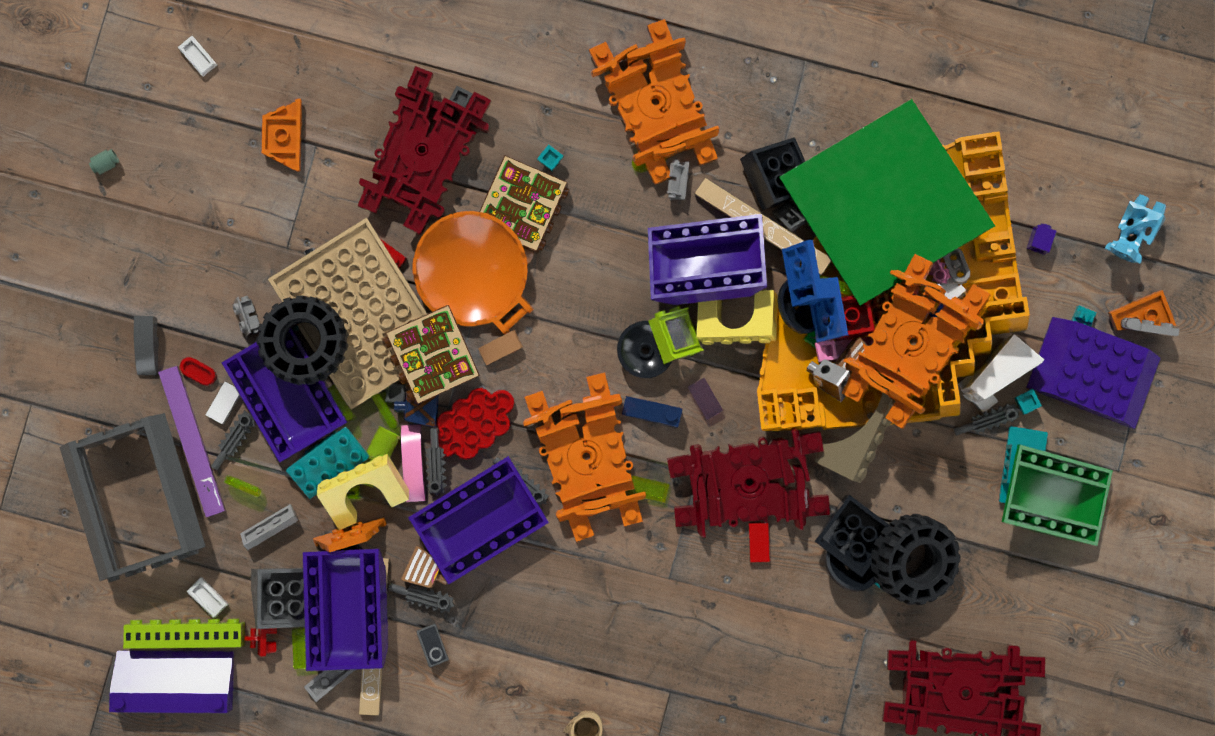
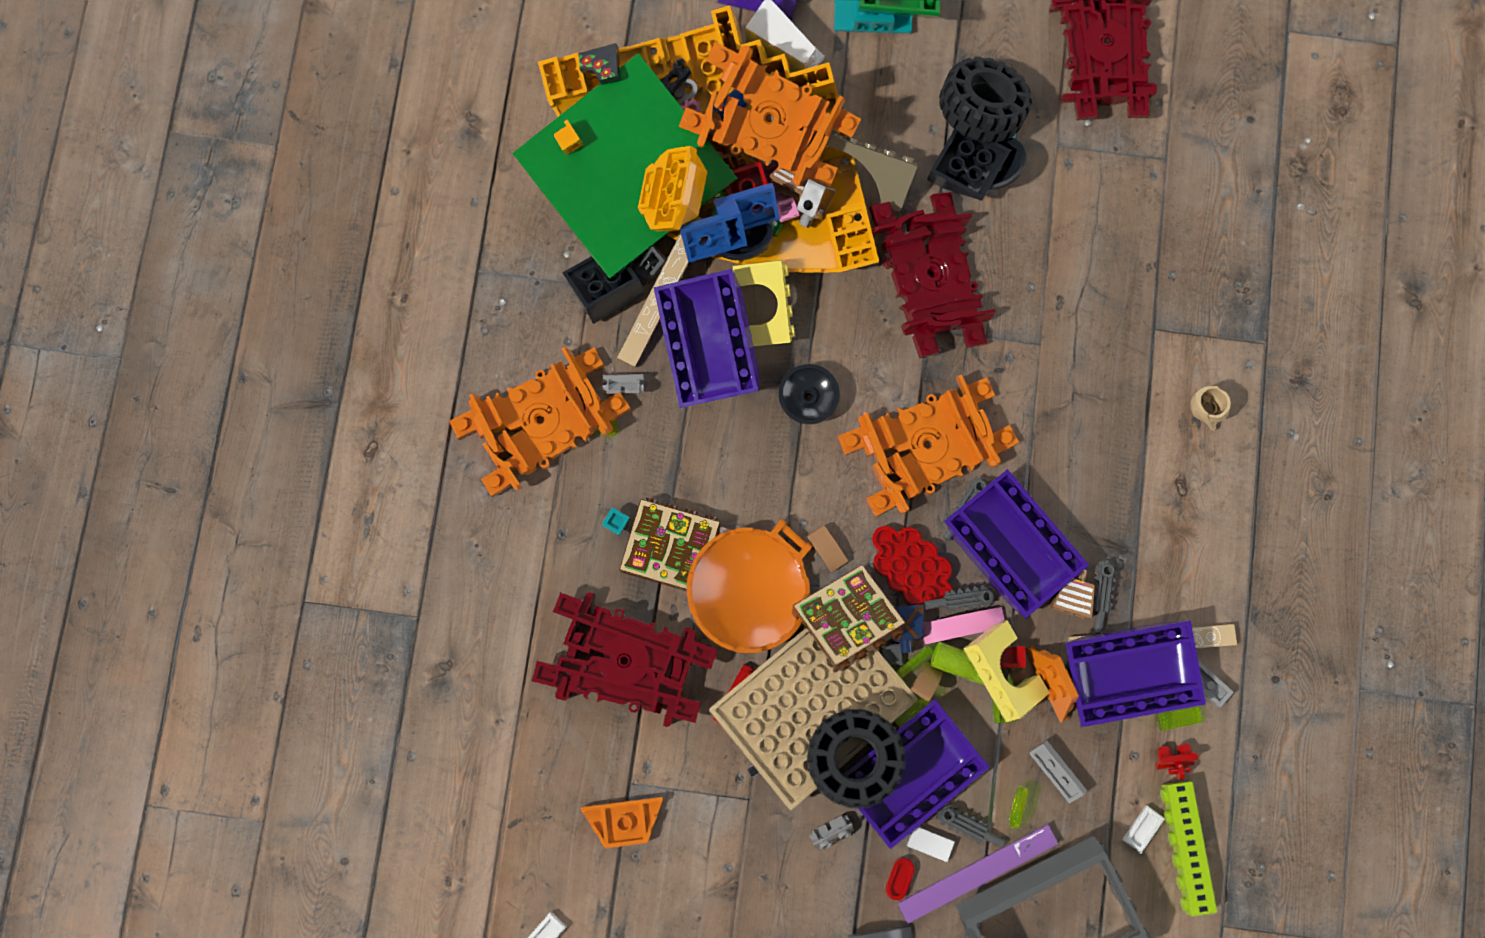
camera: 100 degrees left, 5 degrees down
(172, 682) = (1241, 853): slope -> none
(278, 597) = (1130, 748): dark grey slope -> none
(326, 460) = (978, 716): teal bracket -> none
(365, 419) = (927, 681): none -> medium nougat slope
(376, 502) = (1013, 657): none -> red panel
(432, 645) = (1151, 577): slope -> none
(461, 96) = (558, 628): dark grey tile -> none
(652, 411) = (872, 380): dark blue slope -> none
(654, 489) = (951, 368): clear neon green tile -> none
(674, 334) = (790, 366): lime window -> none
(705, 398) = (850, 330): clear purple tile -> none
(759, 542) = (989, 259): red tile -> none
(850, 240) = (673, 189): none -> light orange piece
(917, 151) = (568, 139): none -> light orange panel
(953, 289) = (705, 94): white panel -> none
(966, 251) = (680, 71): none -> black piece
(988, 420) = (831, 51): dark grey piece -> none
(990, 191) = (602, 63): none -> black tile
(1028, 401) = (808, 13): teal tile -> none
(1041, 239) = (640, 18): dark purple brick -> none

